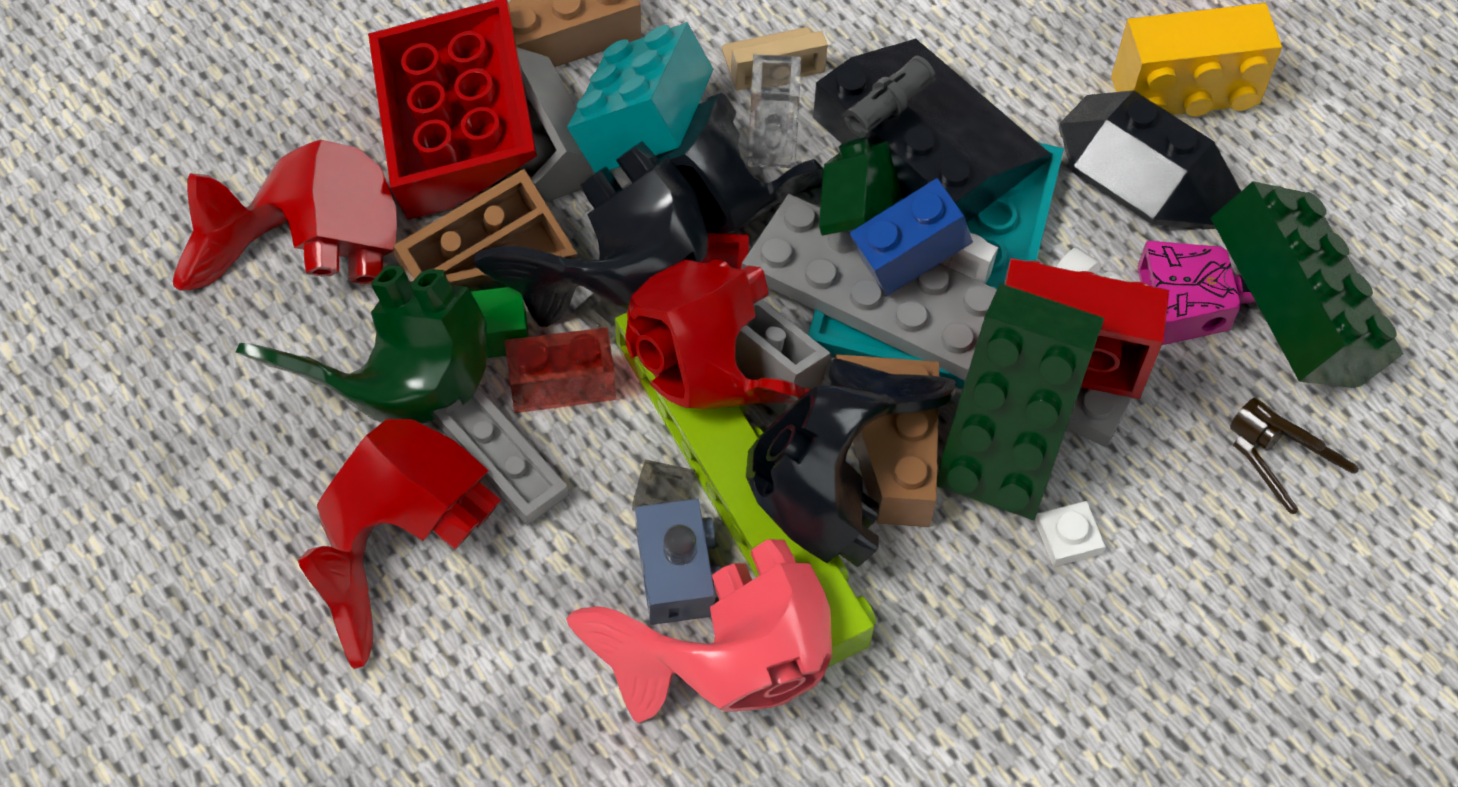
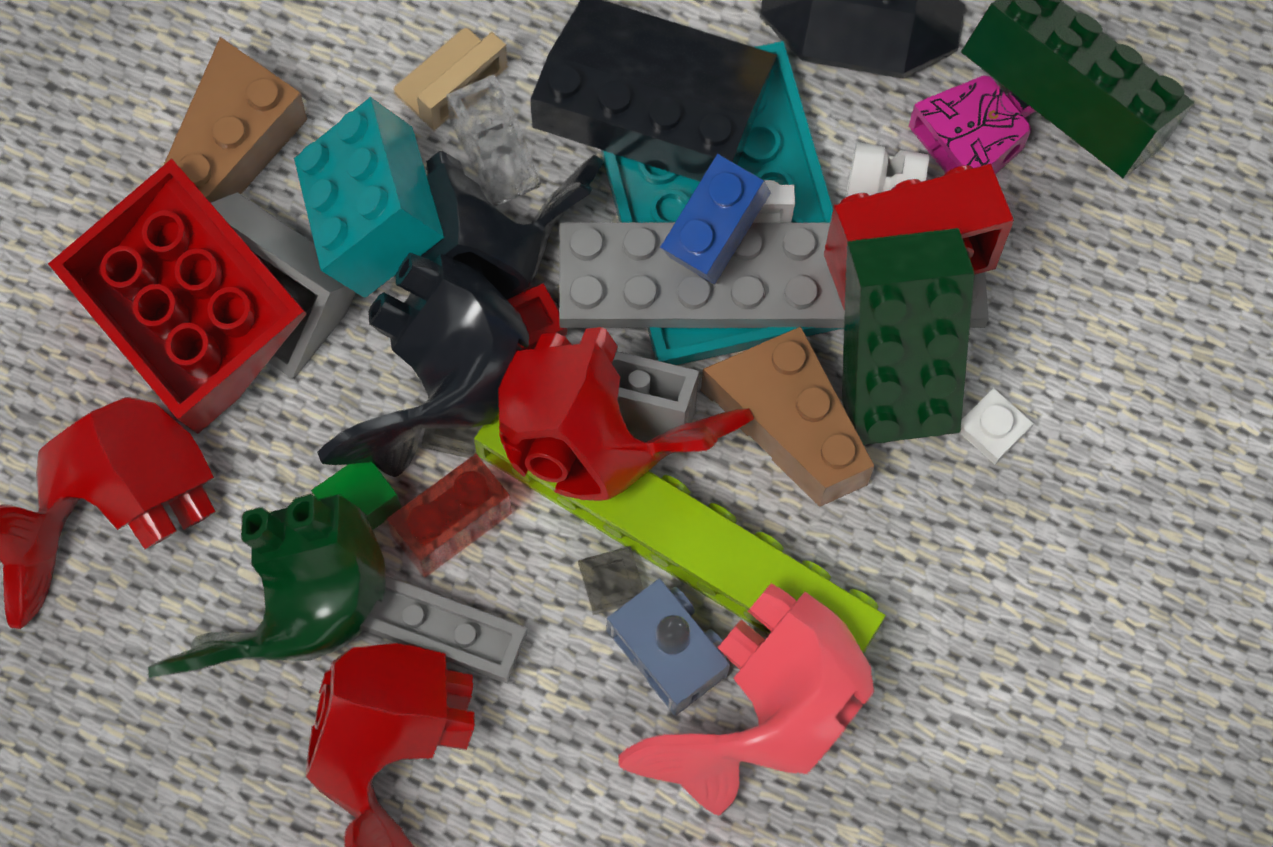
camera: 30 degrees left, 10 degrees up
(501, 216) = (300, 411): medium nougat wedge -> none
(801, 458) = (744, 493): black hips -> none
(857, 186) = (632, 191): dark green slope -> none
(889, 96) = (617, 84): dark grey pin -> none
(1263, 427) = (1105, 234): dark brown plant -> none

